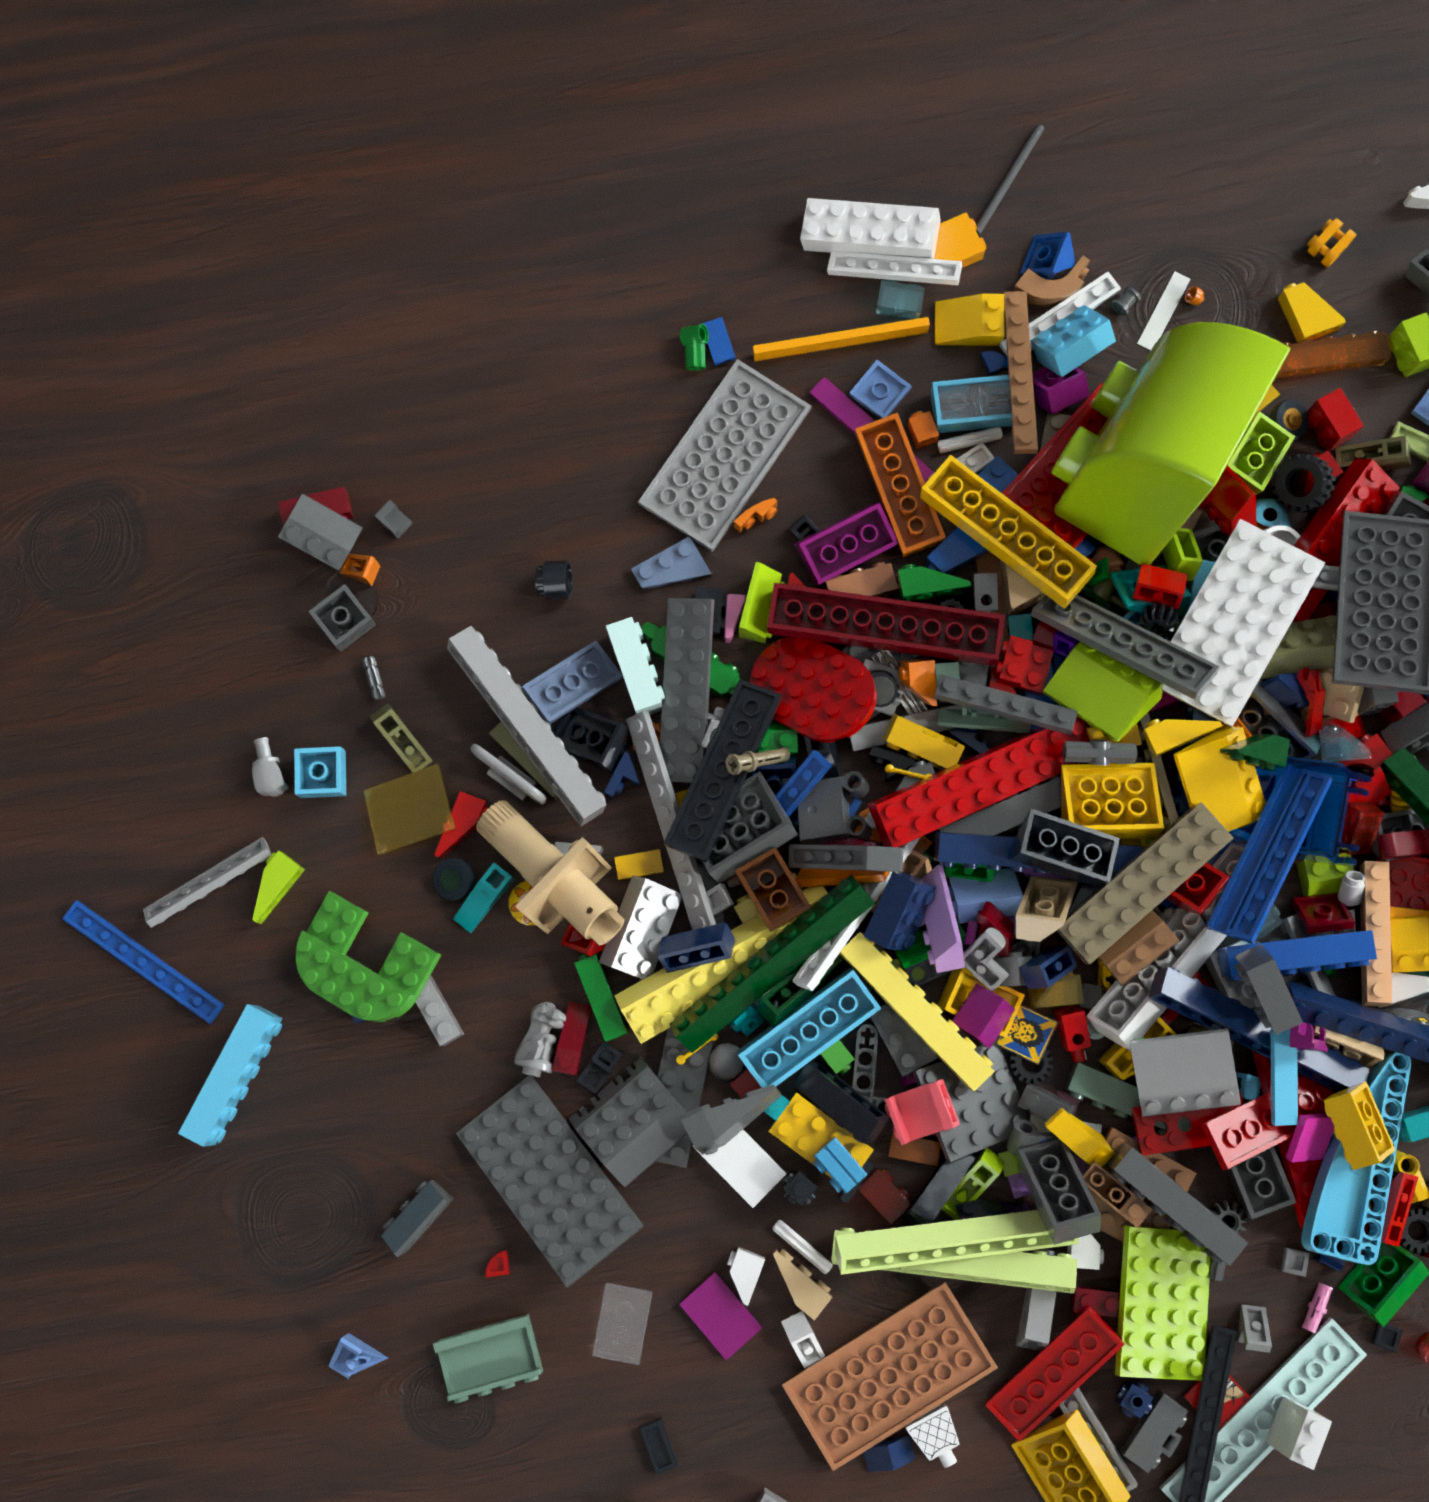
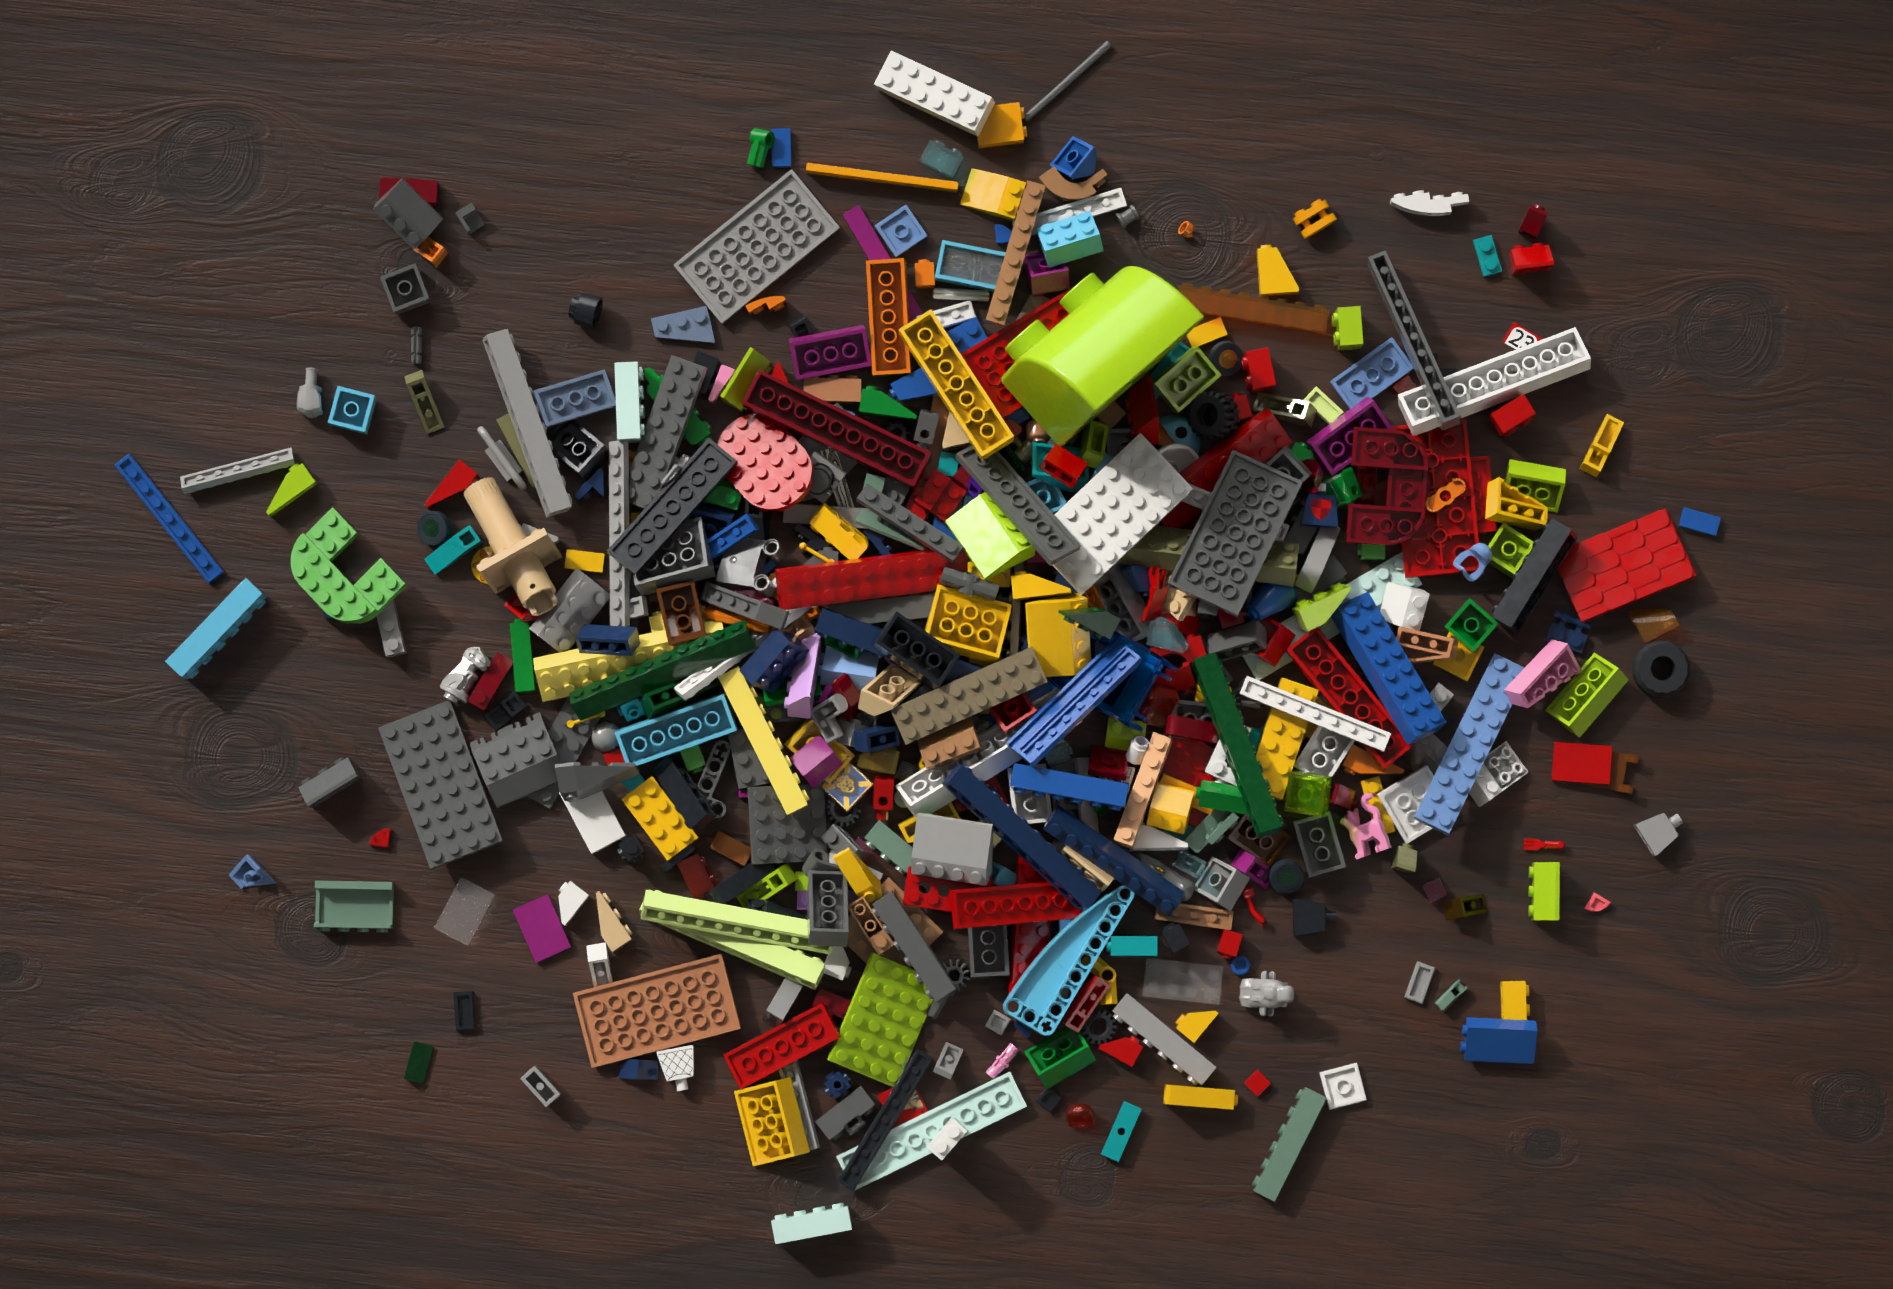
camera: 10 degrees right, 5 degrees up
(408, 809) = (414, 461): clear yellow piece -> none
(750, 761) = (694, 507): dark tan pin -> none
(802, 1246) = (621, 895): white axle -> none
(839, 1165) = (666, 839): dark azure brick -> none
(894, 268) = (944, 132): white plate -> none
(920, 678) = (852, 479): orange slope -> none
(921, 1112) = (742, 819): coral panel -> none
(1101, 573) = (1025, 438): green slope -> none
(1159, 619) = (1054, 493): black gear -> none
(1164, 310) = (1158, 233): white sticker -> none
(1267, 989) = (1029, 803): dark grey brick -> none
(1283, 1080) = (1026, 874): medium azure tile -> none
(1303, 1038) = (1050, 849): magenta hinge -> none
(1310, 1138) = (1036, 928): dark pink tile -> none
(1359, 1126) = (1072, 929): yellow slope -> none

